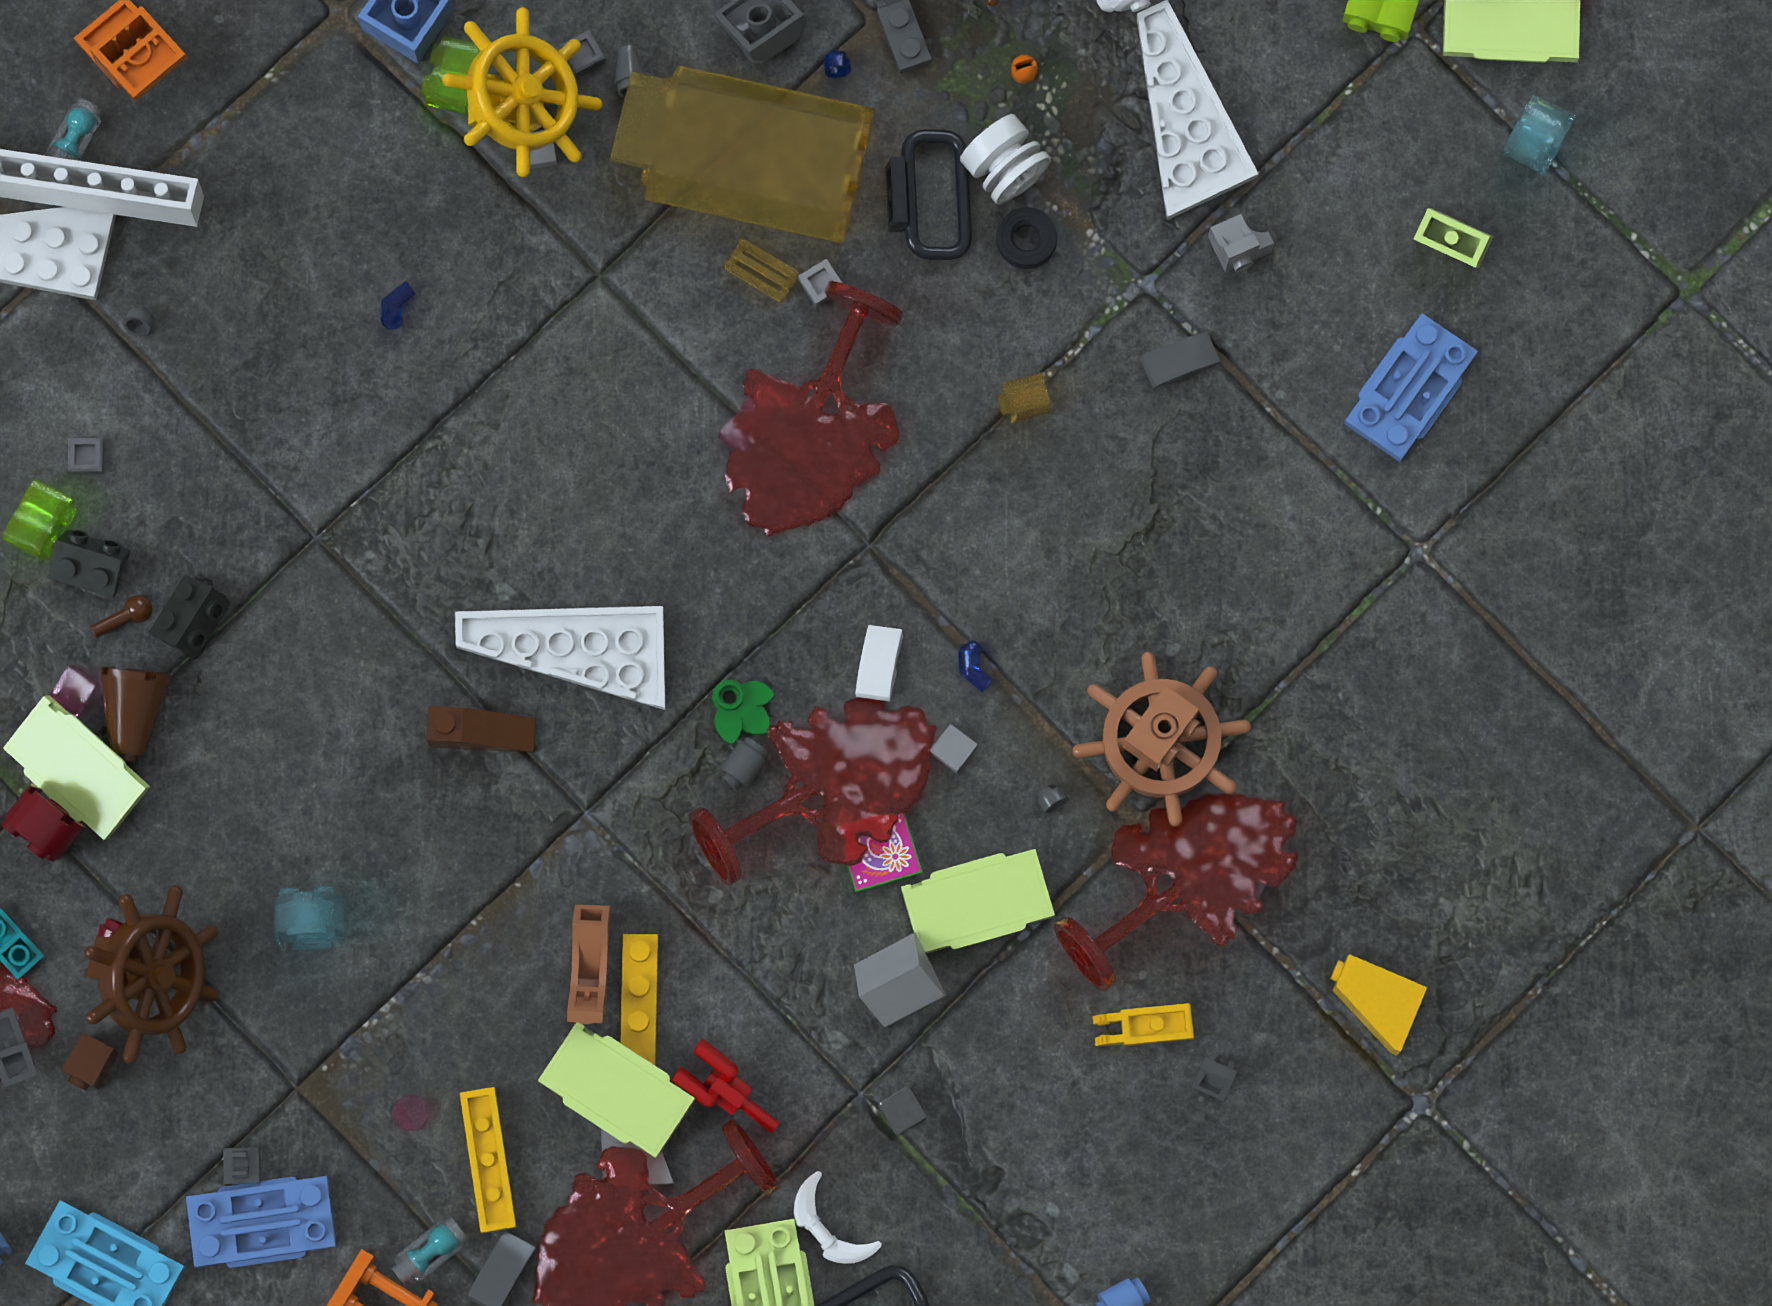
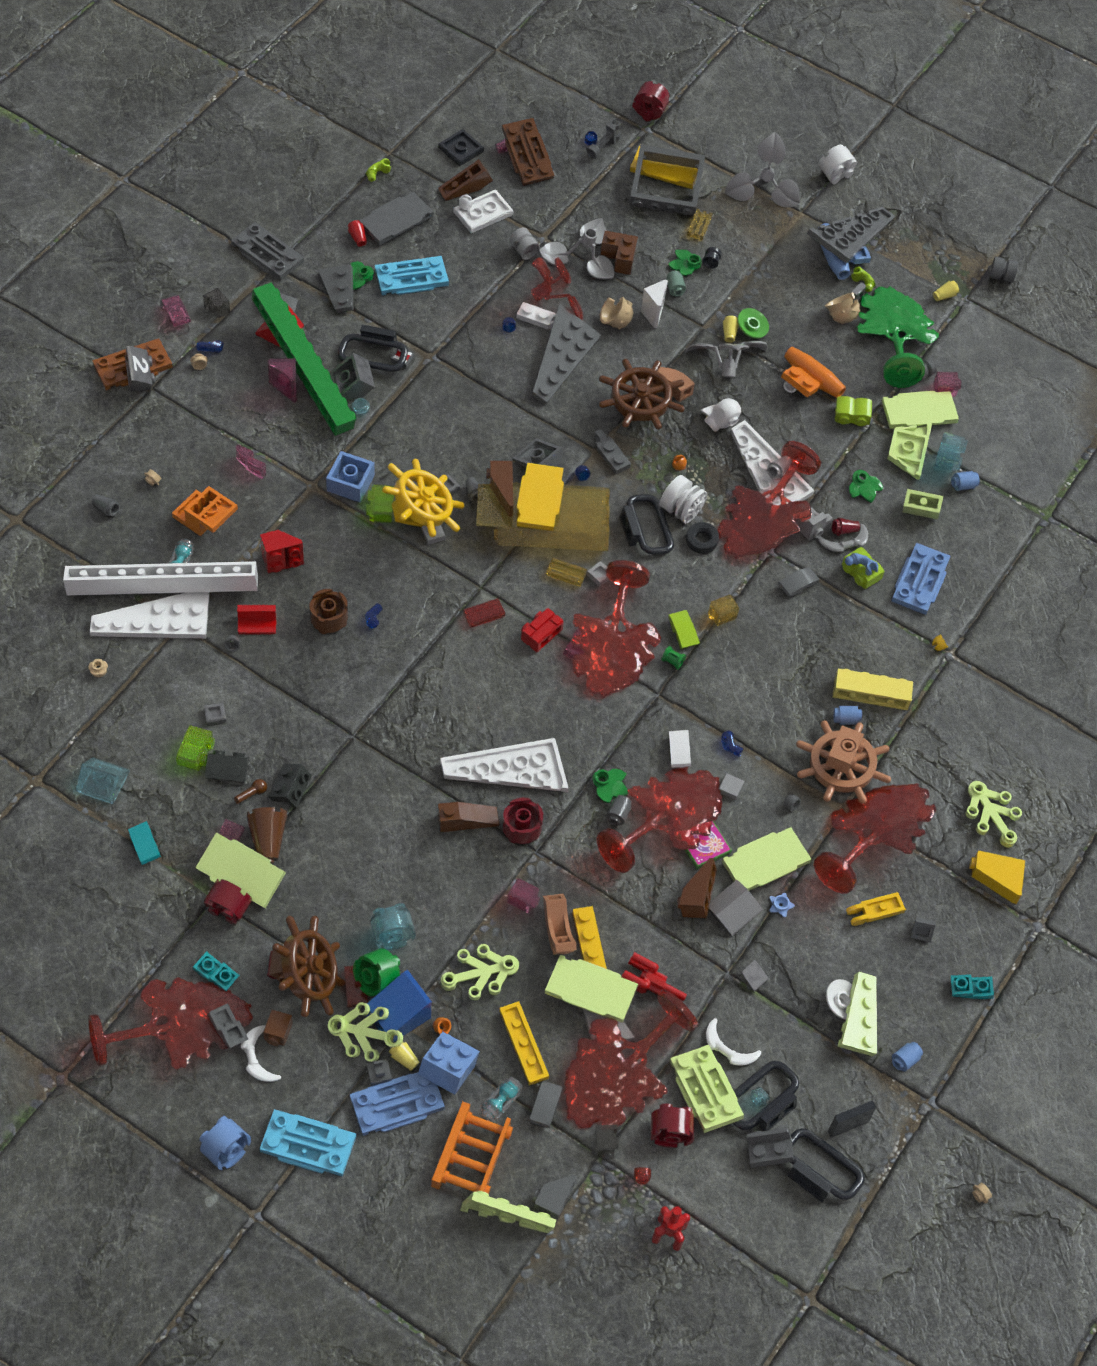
camera: 15 degrees left, 20 degrees down
(41, 1122) = (253, 1067): none -> white piece
(189, 282) = (256, 619): none -> red panel
(223, 1097) = (361, 1031): none -> yellowish green plant
(233, 1007) = (353, 990): none -> clear red tile
(250, 155) = (281, 551): none -> red slope
(266, 998) = (376, 971): none -> green brick
(287, 1146) = (405, 1056): none -> light yellow cone
(290, 1067) = (406, 1005): none -> blue slope
(296, 288) = (328, 611): none -> reddish brown brick
(353, 1177) = (448, 1062): none -> medium blue brick
(362, 1113) = (444, 1023): none -> orange hinge
(410, 1113) = (472, 1026): clear pink tile -> none
(448, 1020) = (482, 970): none -> yellowish green plant
(544, 896) = (523, 896): none -> clear pink brick
(555, 746) = (522, 821): none -> dark red brick
(594, 330) = (484, 613): none -> clear red tile
(672, 76) = (501, 483): none -> reddish brown slope
(688, 384) = (541, 629): none -> red brick
(735, 122) = (540, 496): none -> yellow piece
(843, 942) = (698, 891): none -> reddish brown slope
(900, 476) = (673, 657): none -> green bush
(945, 423) = (684, 629): none -> lime slope
(987, 976) = (780, 899): none -> light blue plate
(1054, 1186) = (838, 997): none -> white dish
(1060, 1228) = (861, 1019): none -> yellowish green wing
(1136, 225) = (756, 521): none -> clear red plant
(1195, 647) = (847, 715): none -> medium blue brick
(1200, 118) = (778, 467): none -> light grey cone
(1255, 602) = (873, 689): none -> light yellow brick
(1271, 1195) = (973, 988): none -> teal slope
(1295, 257) = (843, 526): none -> dark red cone
(1295, 341) = (856, 558): none -> medium blue piece
(1305, 351) = (858, 571): none -> lime brick
(1314, 292) = (859, 541): none -> light grey piece
(1362, 179) = (866, 488): none -> green plate
(1402, 874) = (992, 810): none -> yellowish green plant
(1407, 528) = (941, 643): none -> yellow hinge
(1467, 106) = (909, 448): none -> yellowish green wing
(1552, 194) = (965, 480): none -> medium blue brick

